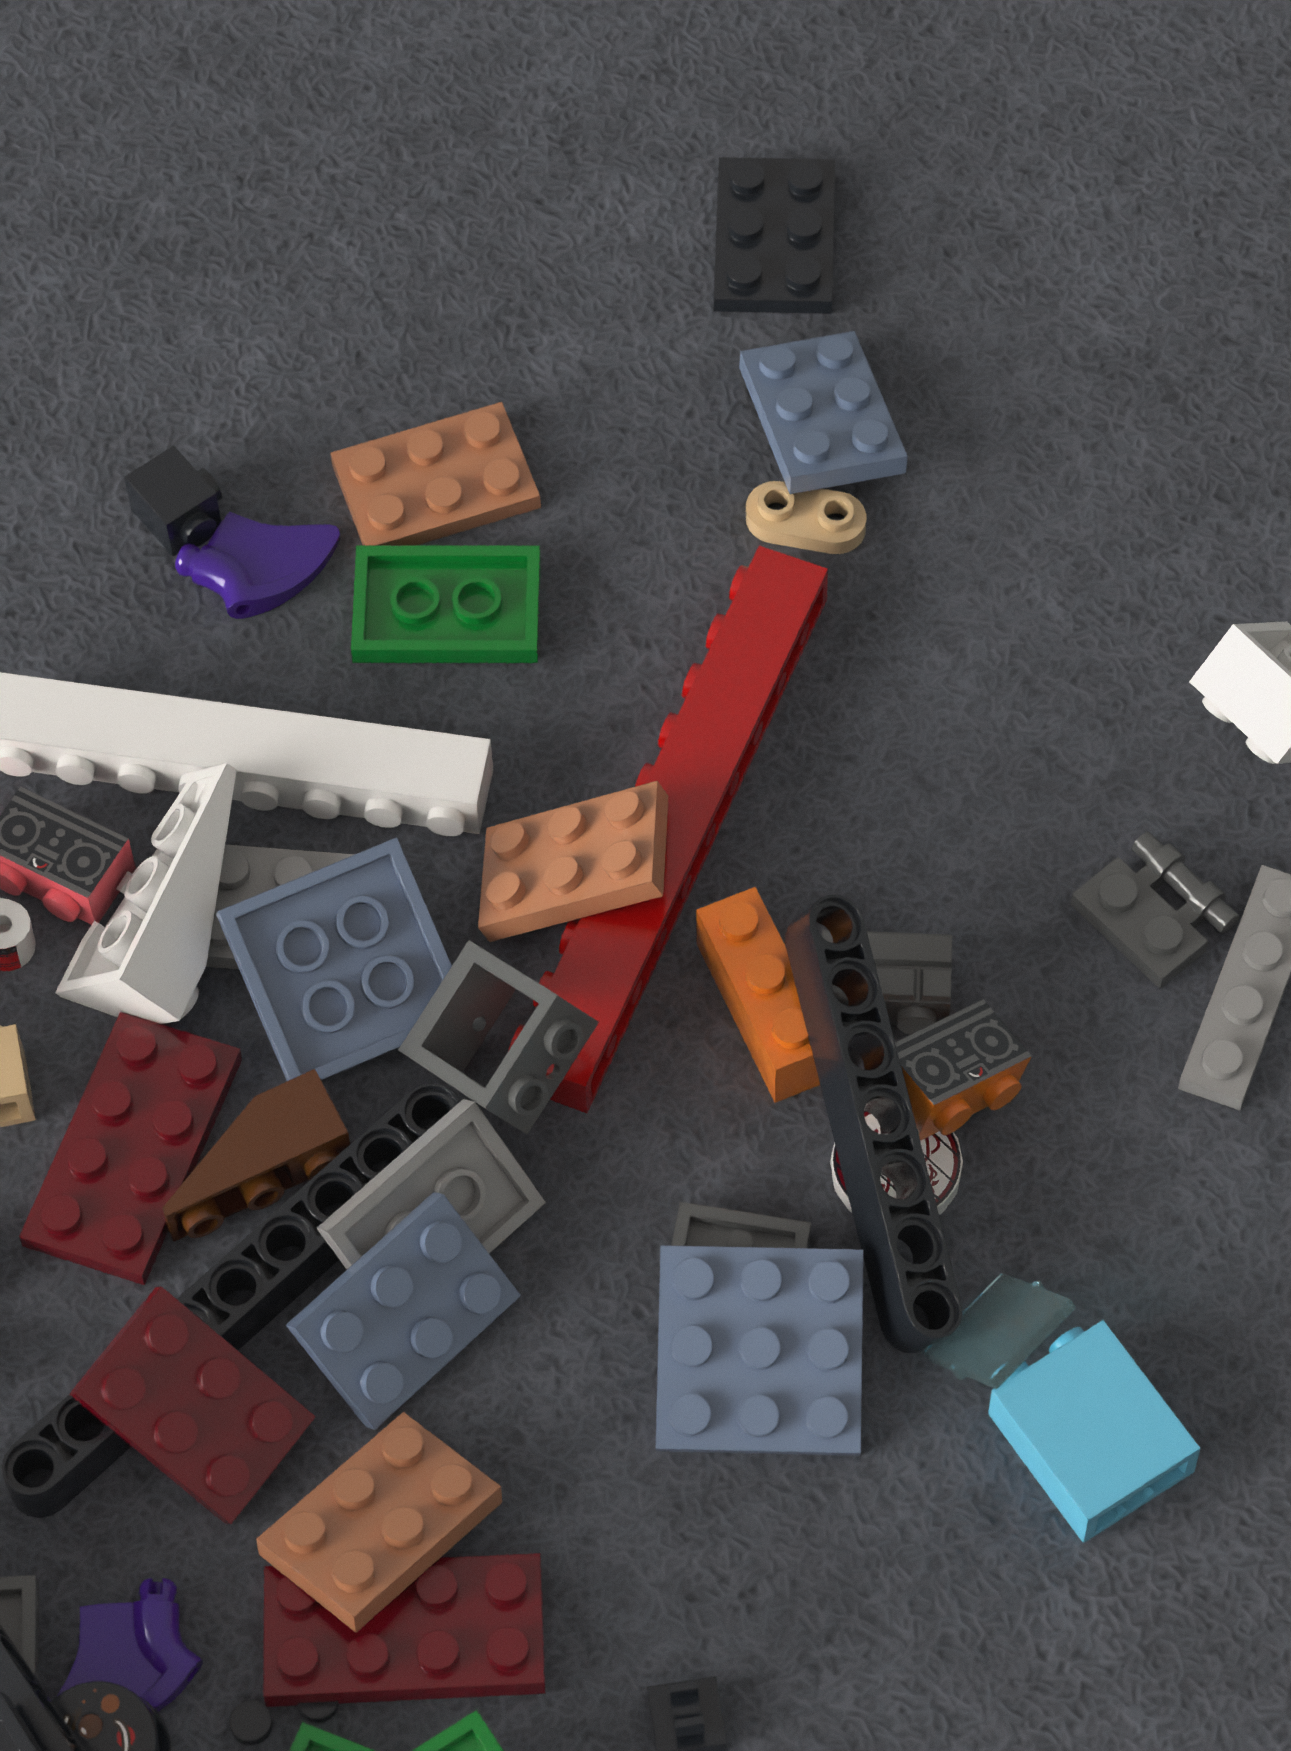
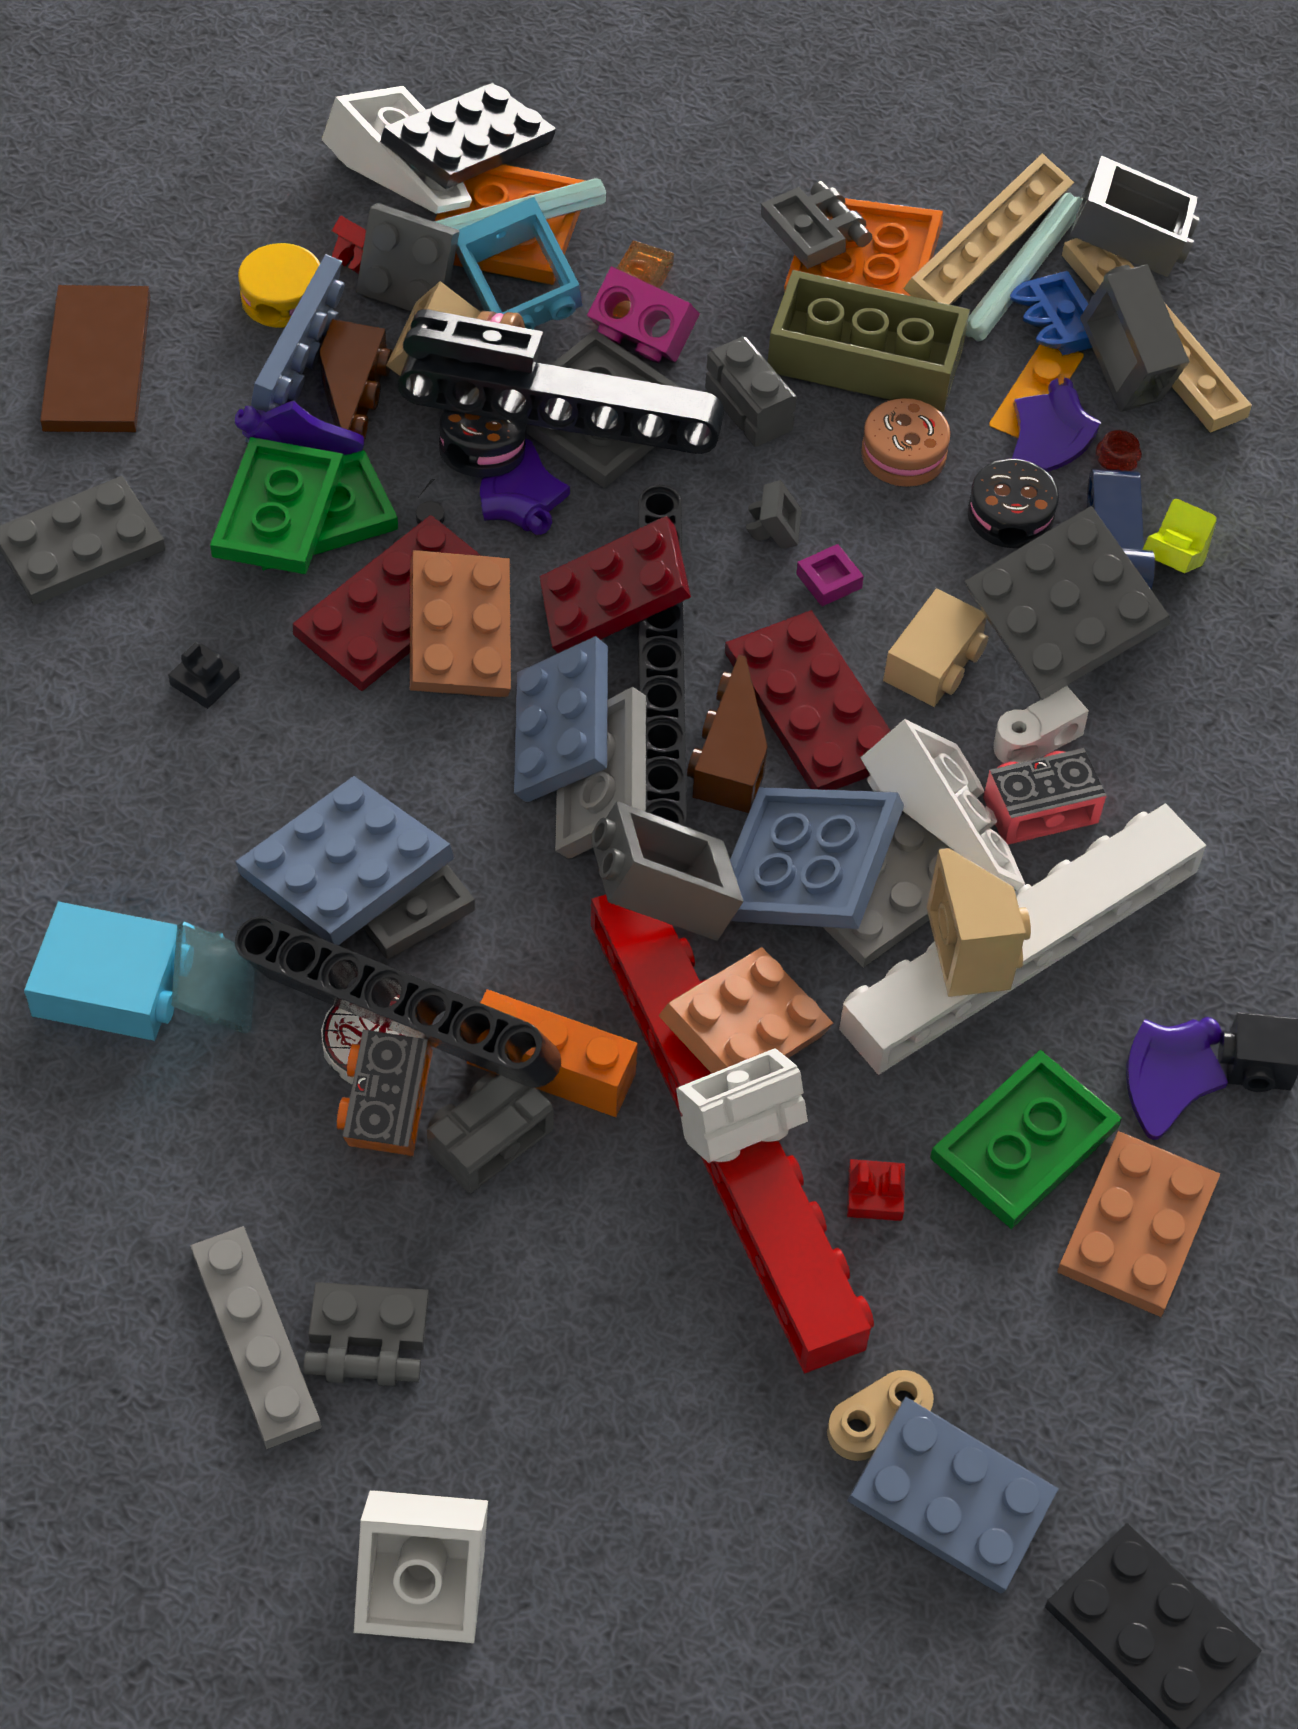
camera: 130 degrees right, 5 degrees down
(324, 718) = (975, 926): none -> tan slope
(611, 673) = (876, 1190): none -> red tile
(683, 752) = (742, 1106): none -> white brick

